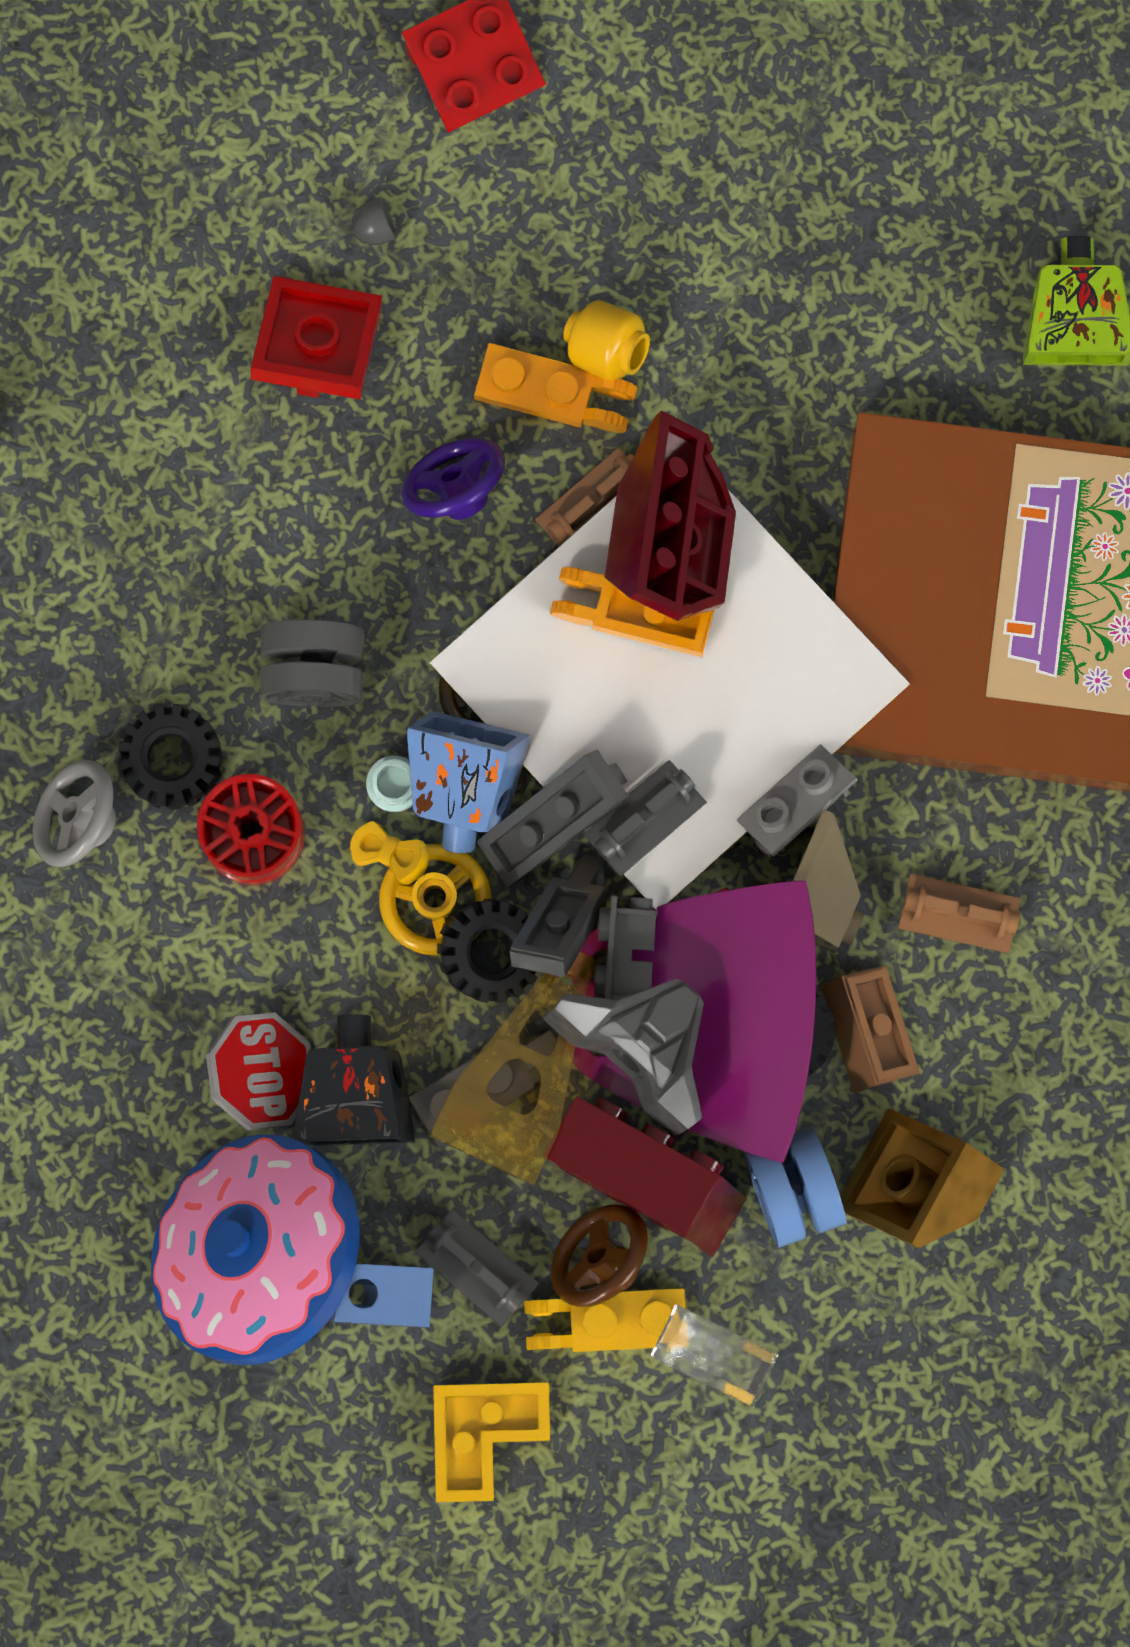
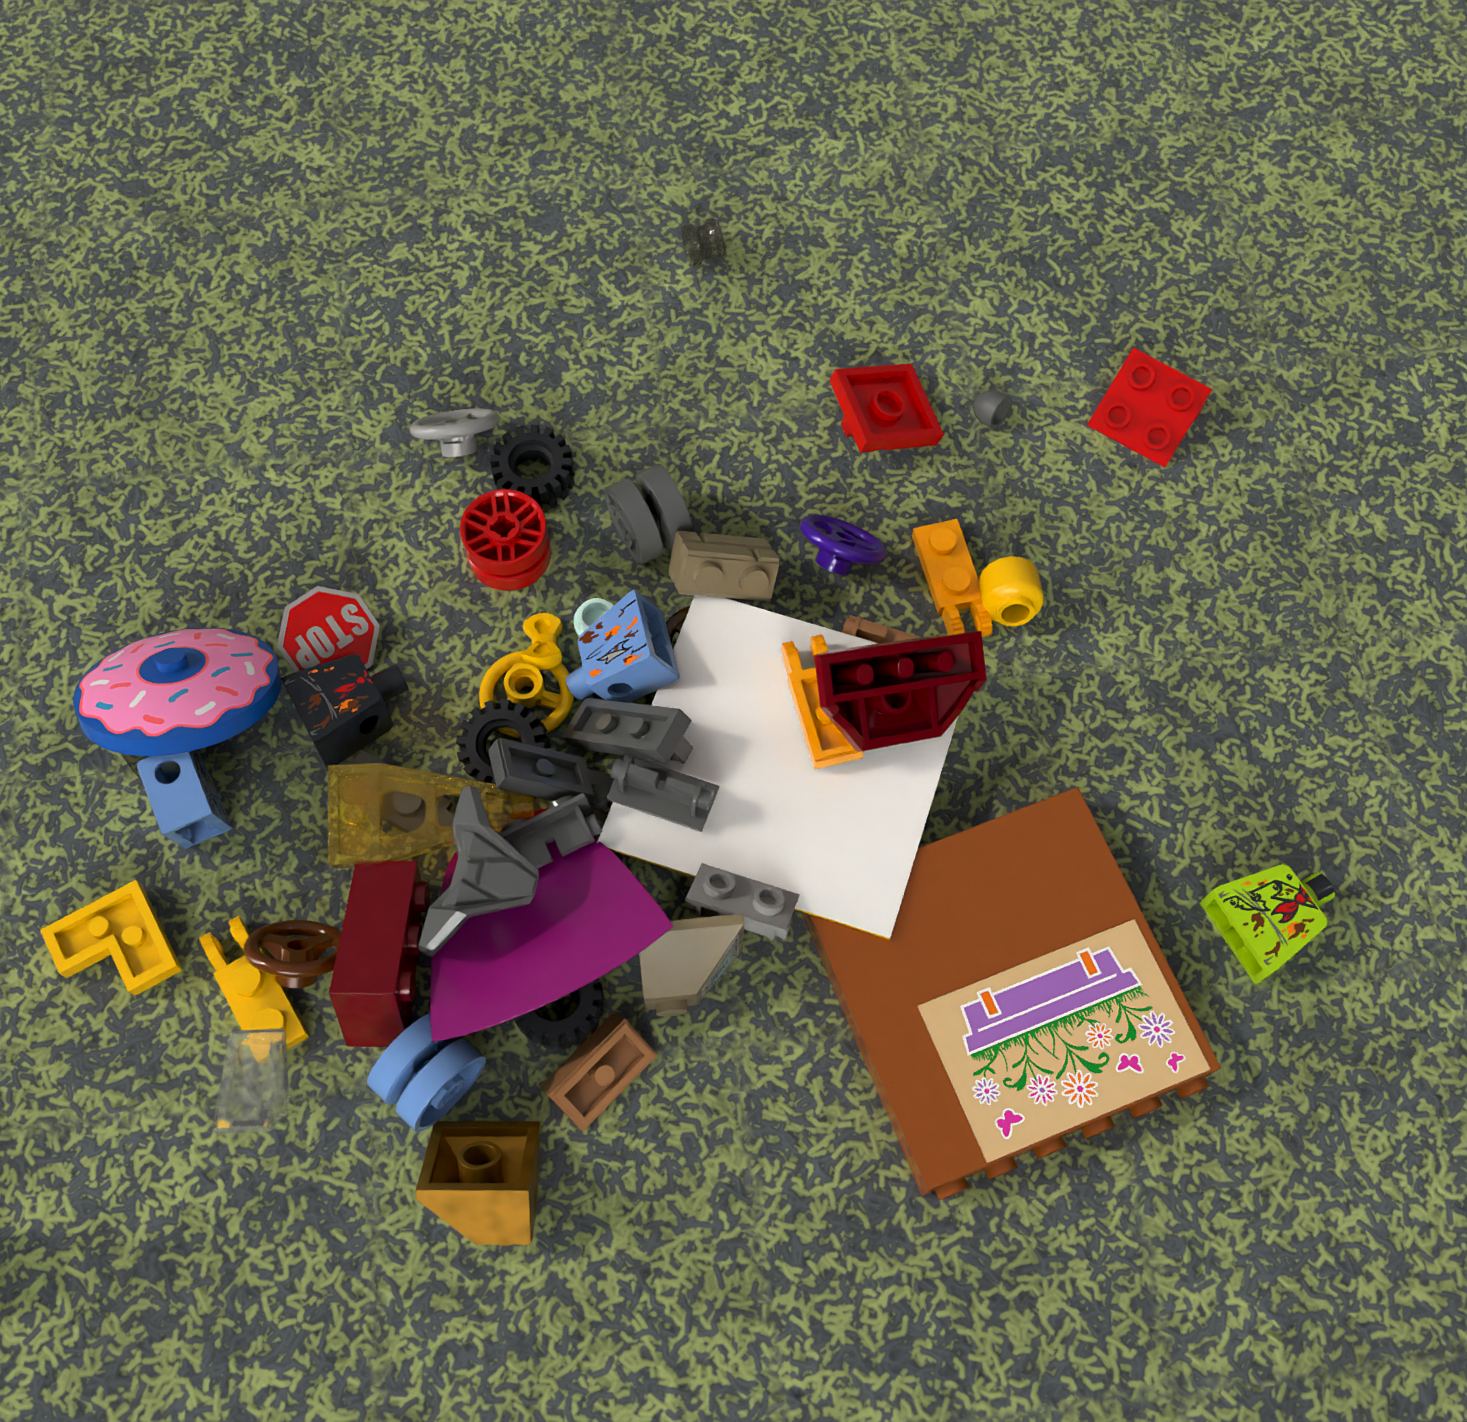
camera: 60 degrees right, 15 degrees down
(420, 620) = (723, 566): none -> dark tan brick
(476, 1267) = (251, 867): dark grey hinge -> none
(959, 913) = (731, 1090): medium nougat hinge -> none

